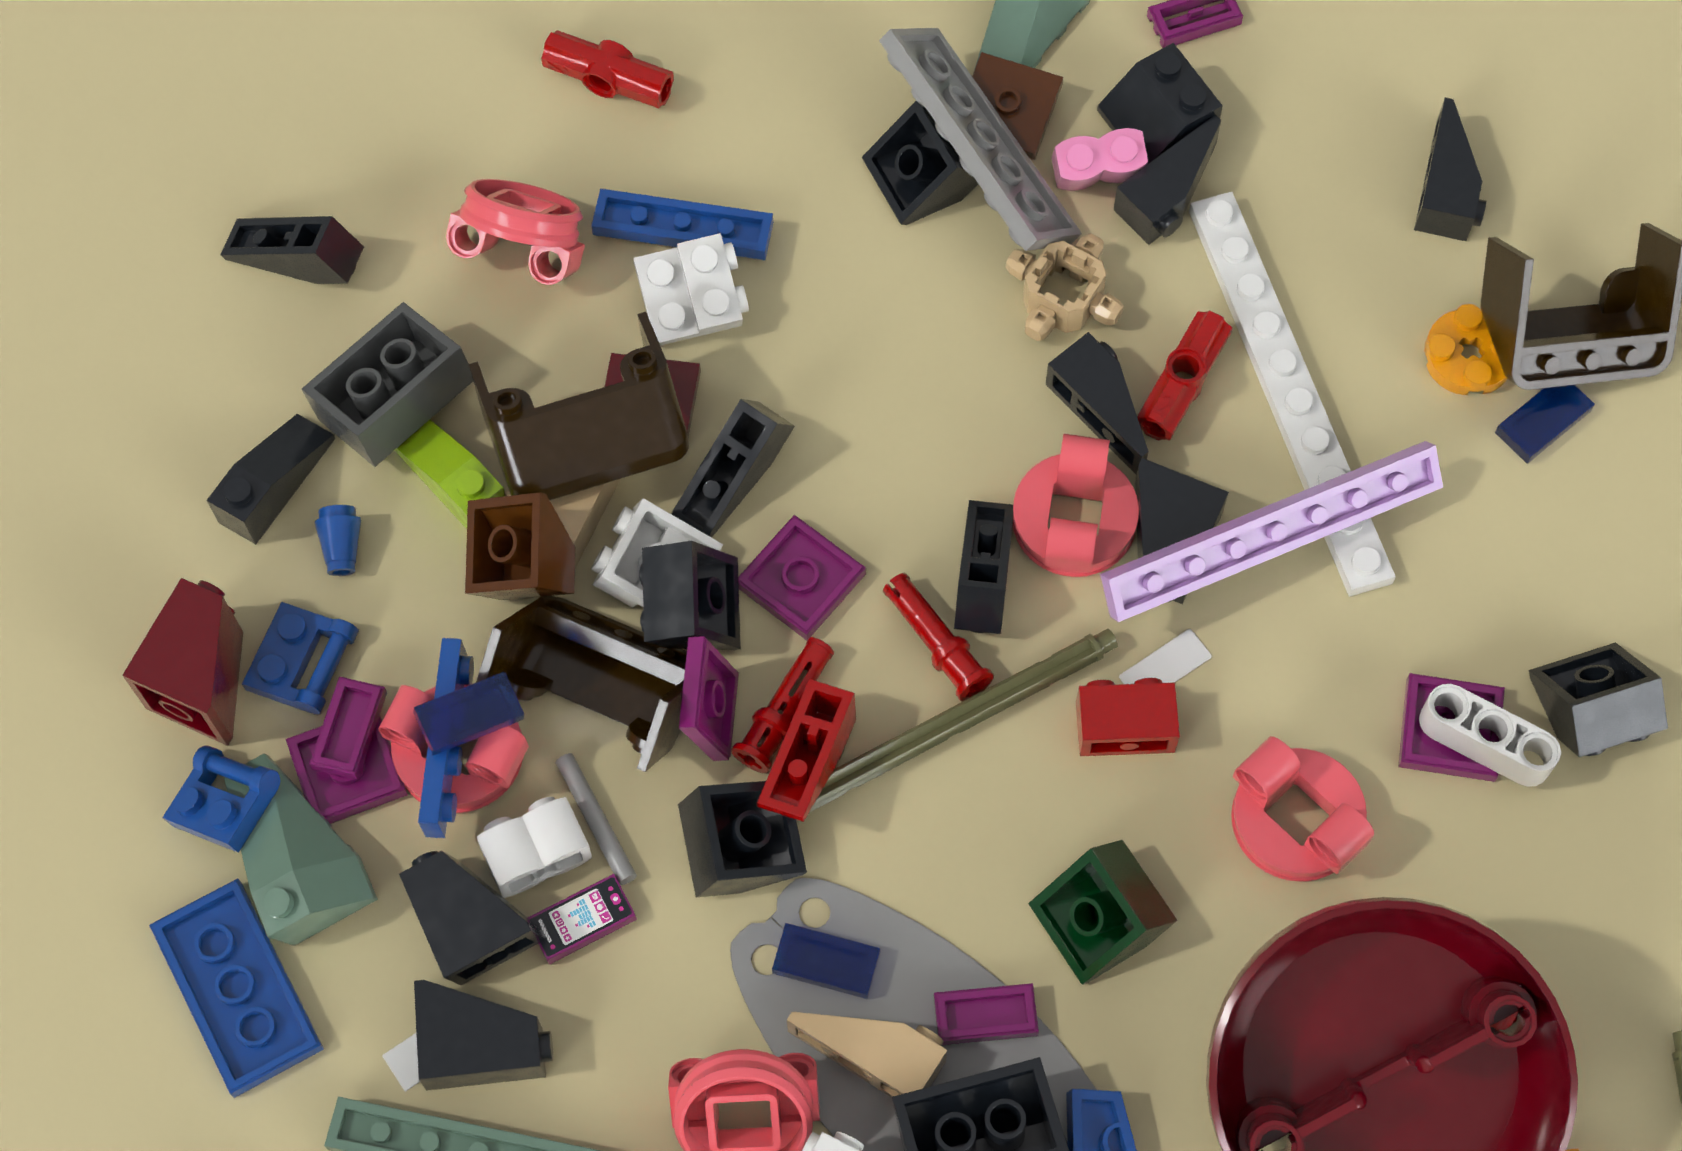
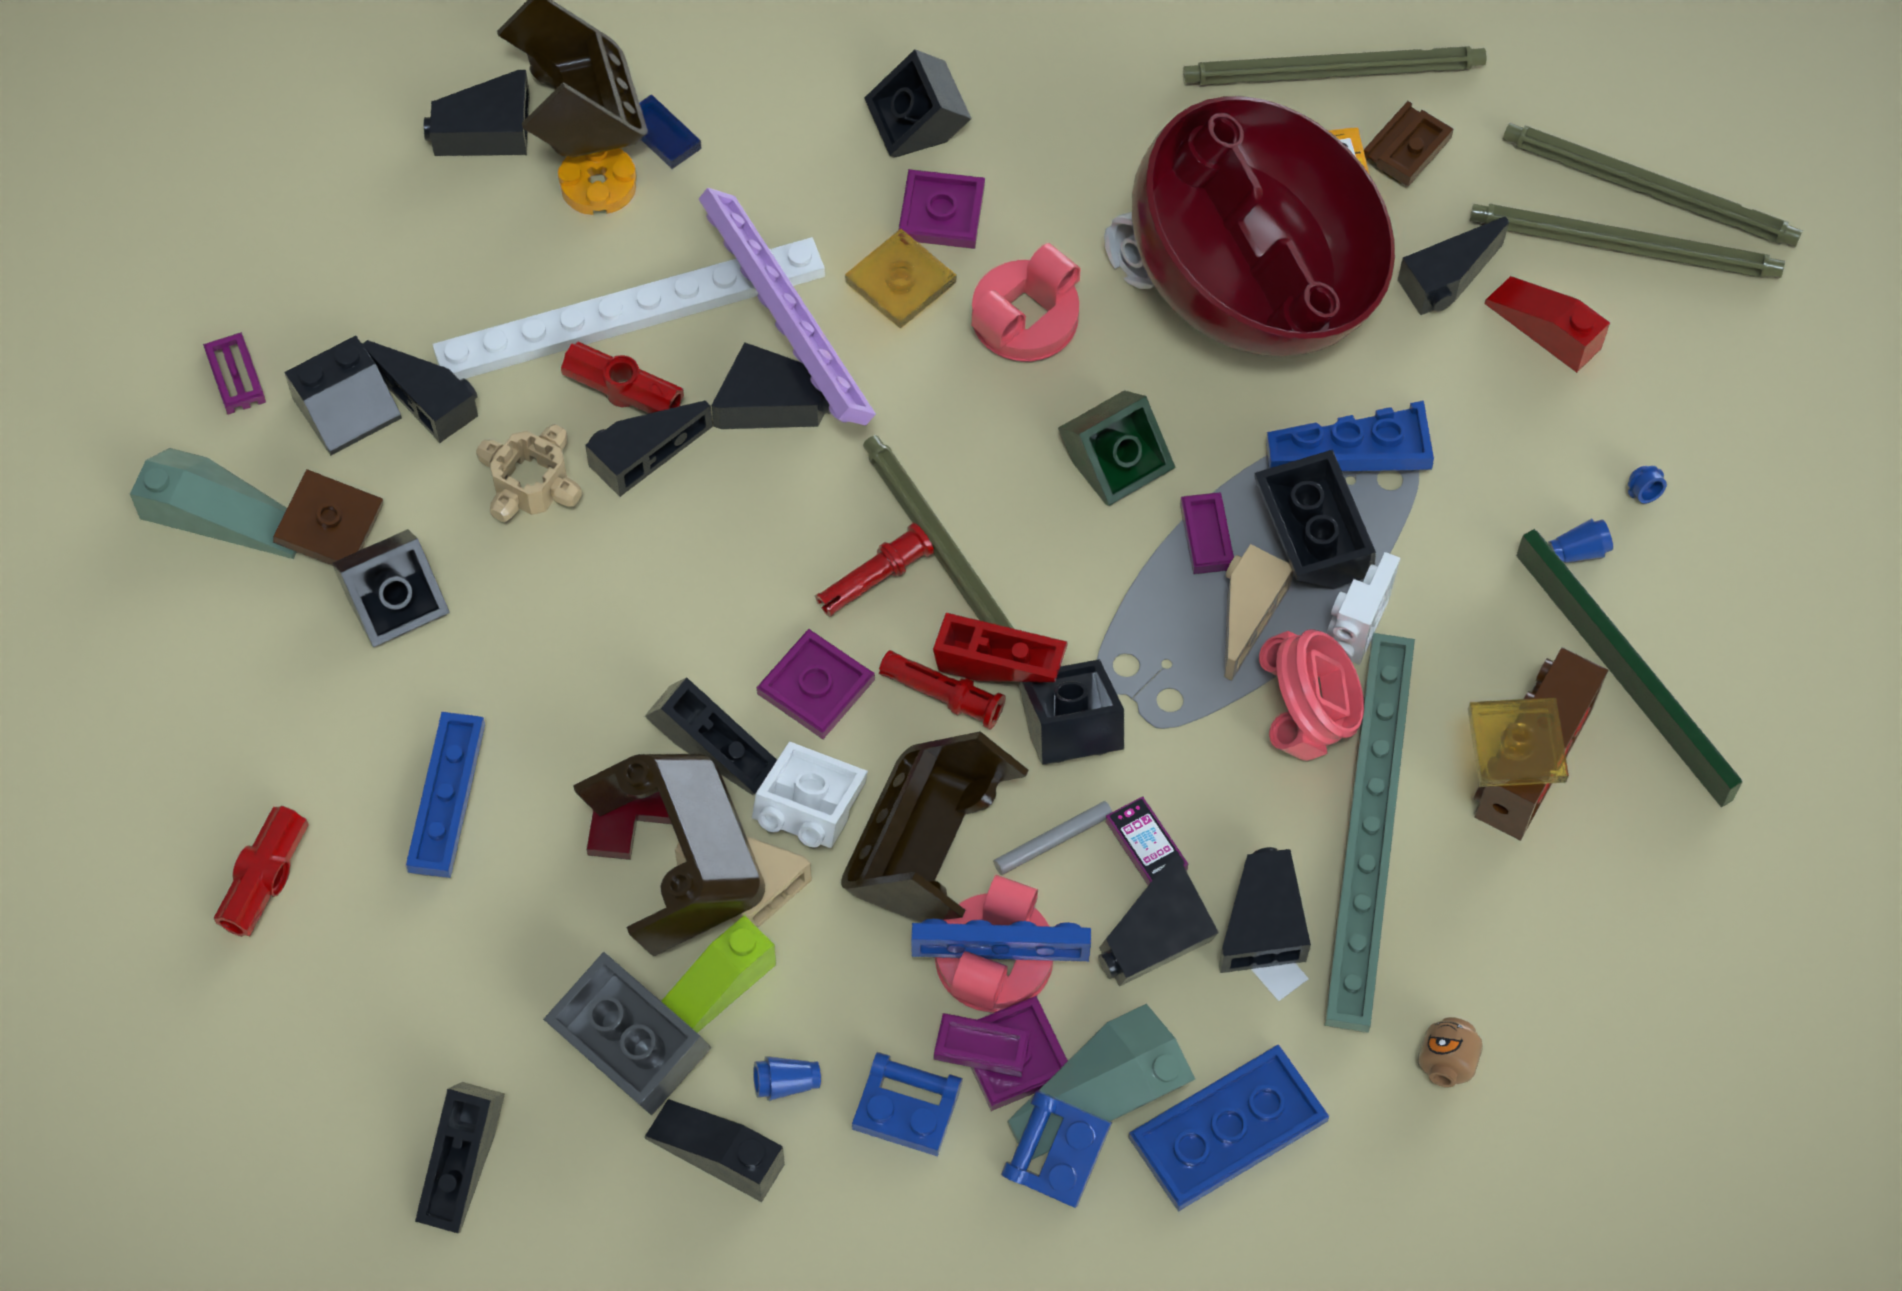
camera: 95 degrees left, 5 degrees down
(191, 661) = (927, 1179): dark red slope -> none
(468, 713) = (988, 906): clear blue tile -> none
(517, 549) = (812, 894): reddish brown slope -> none
(523, 216) = (445, 925): coral piece -> none
(533, 846) = (1086, 879): white brick -> none
(689, 594) = (854, 756): black slope -> none
(691, 289) = (523, 777): white plate -> none
(708, 699) = (930, 729): magenta tile -> none
(826, 960) = (1170, 650): clear blue tile -> none
(979, 137) = (373, 529): light grey plate -> none
(984, 567) = (812, 531): black slope -> none
(1071, 545) = (761, 434): coral piece -> none
(1086, 160) = (400, 440): bright pink brick -> none
(1127, 718) = (947, 427): red brick -> none
(1170, 661) = (892, 408): white sticker -> none
(1341, 674) = (900, 278): none -> clear yellow plate
(1451, 181) = (426, 180): black slope -> none
(1513, 733) = (958, 172): white beam -> none
(1546, 226) = (481, 119): none -> black slope

